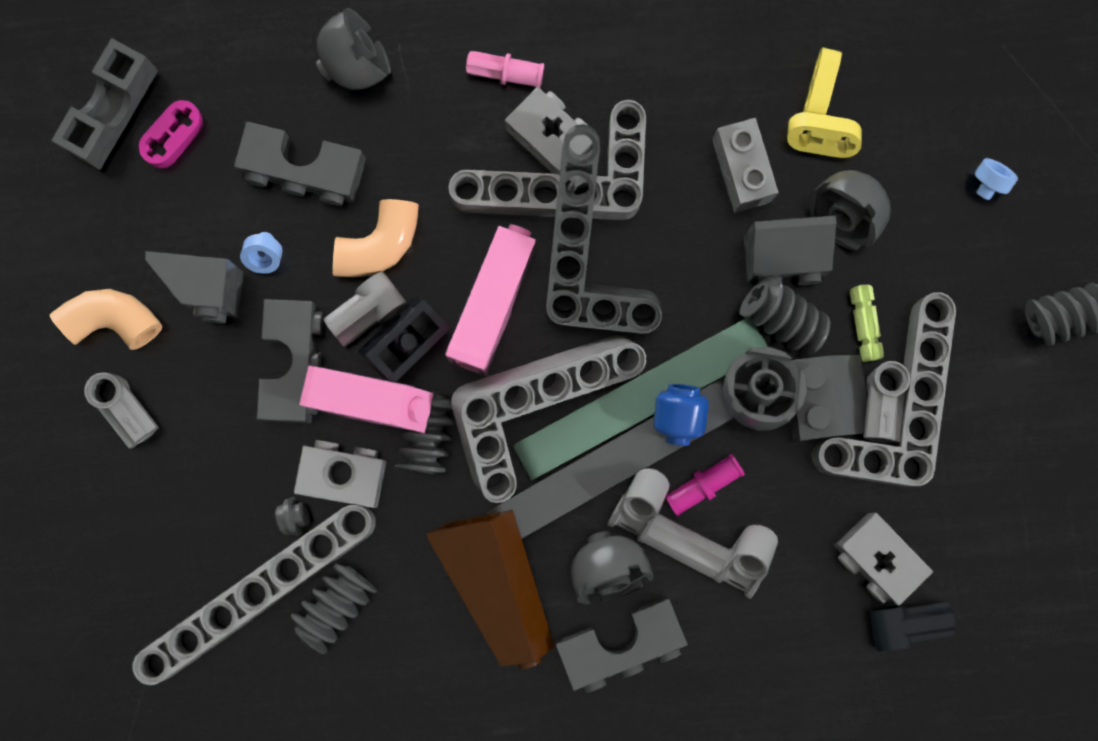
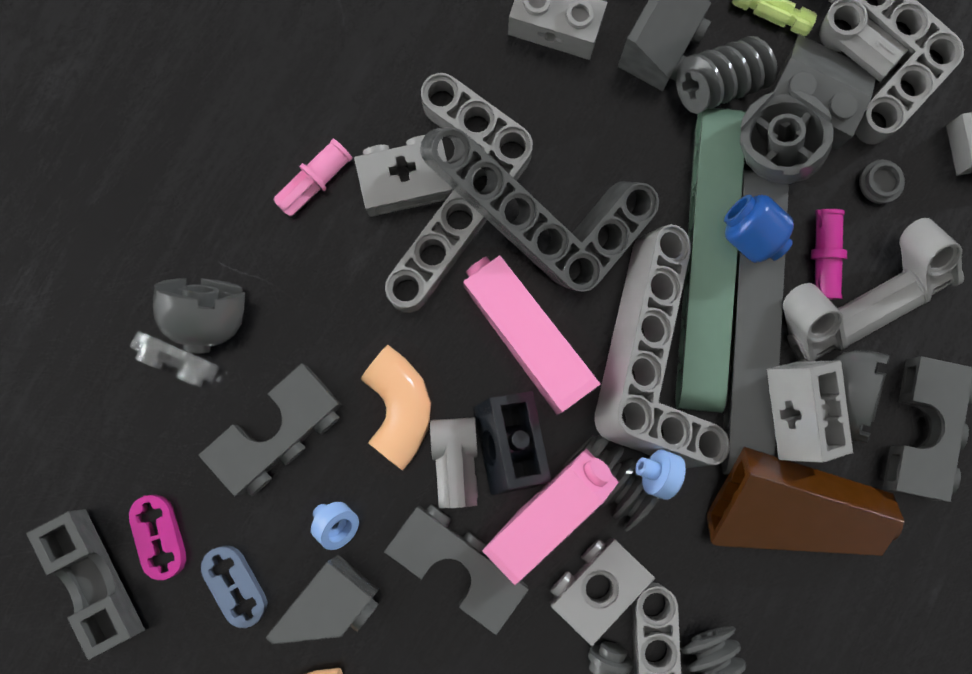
camera: 55 degrees left, 0 degrees up
(163, 208) = (224, 591): none -> sand blue beam
(302, 42) = (155, 352): none -> clear plate
(450, 459) = (661, 473): none -> light blue tile
(569, 538) = (810, 411): none -> light grey brick
(788, 490) = (882, 181): none -> dark grey plate

